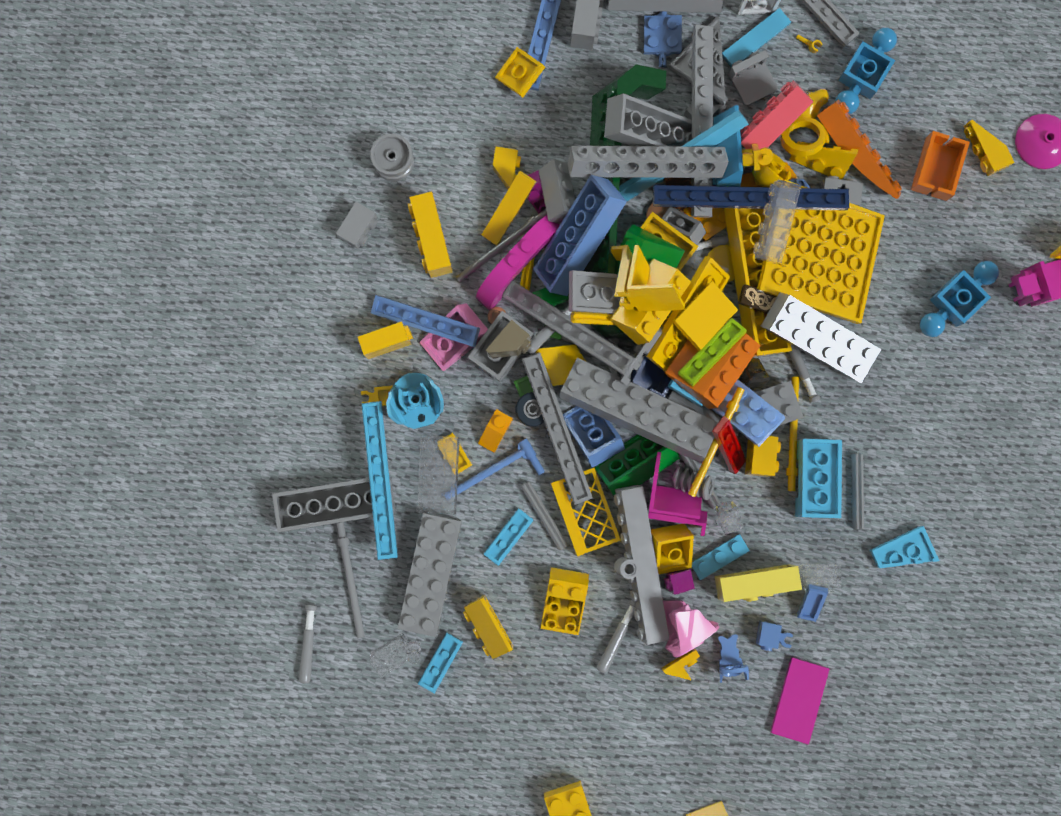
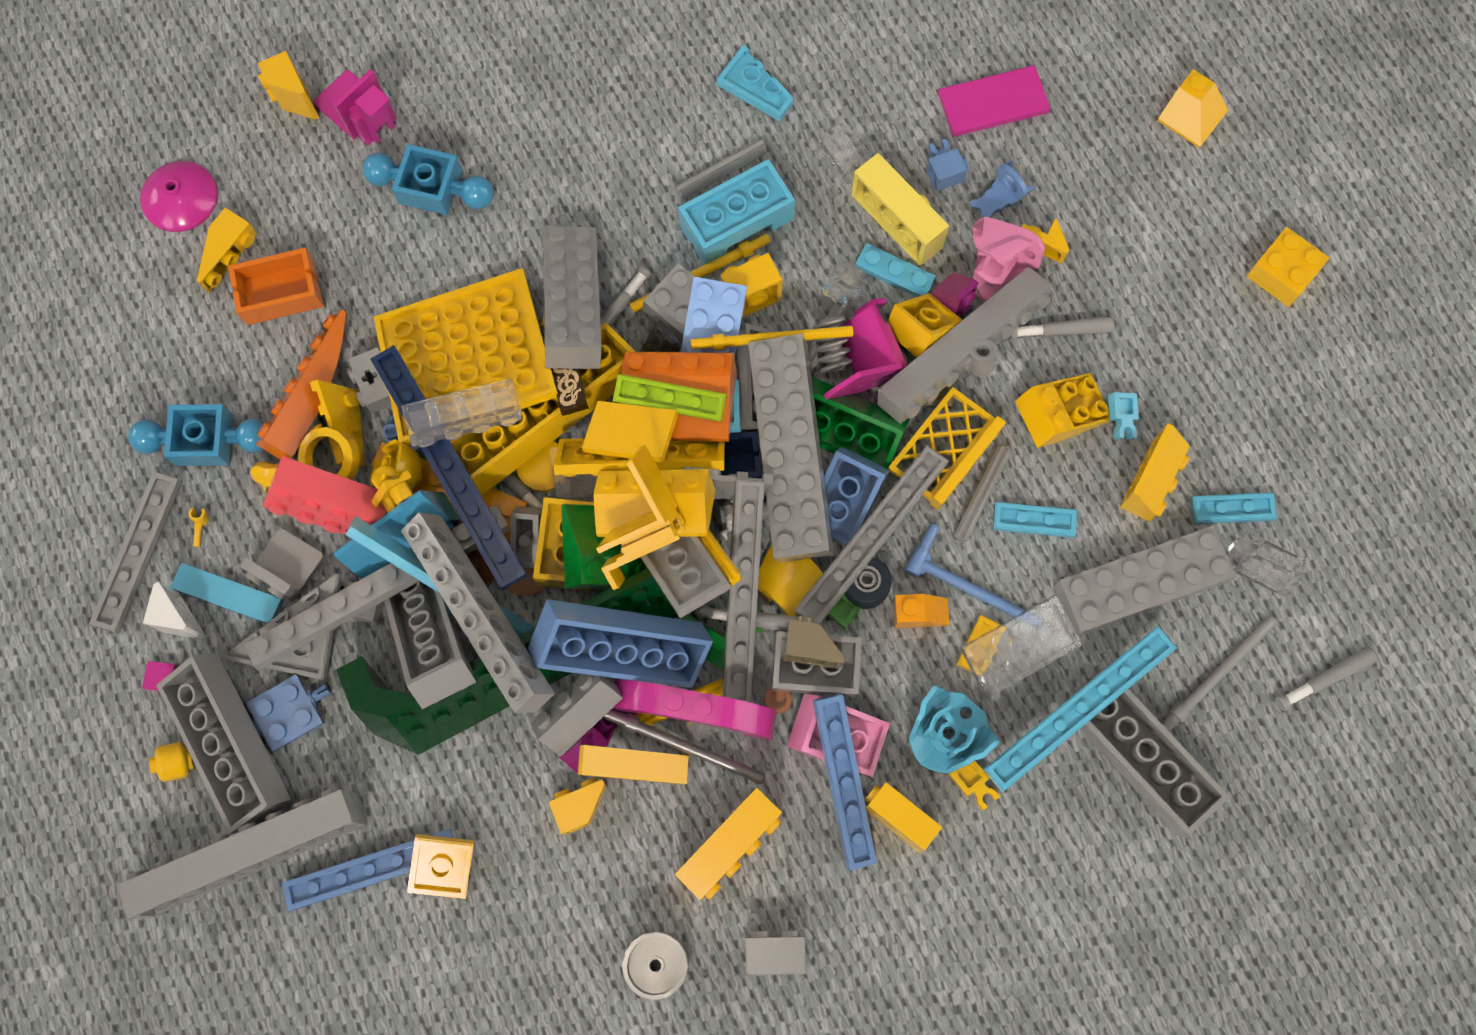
camera: 115 degrees left, 10 degrees down
(541, 636) = (1123, 410): none -> medium azure plate
(729, 445) = (765, 323): red tile -> none
(812, 602) = (880, 141): medium blue tile -> none

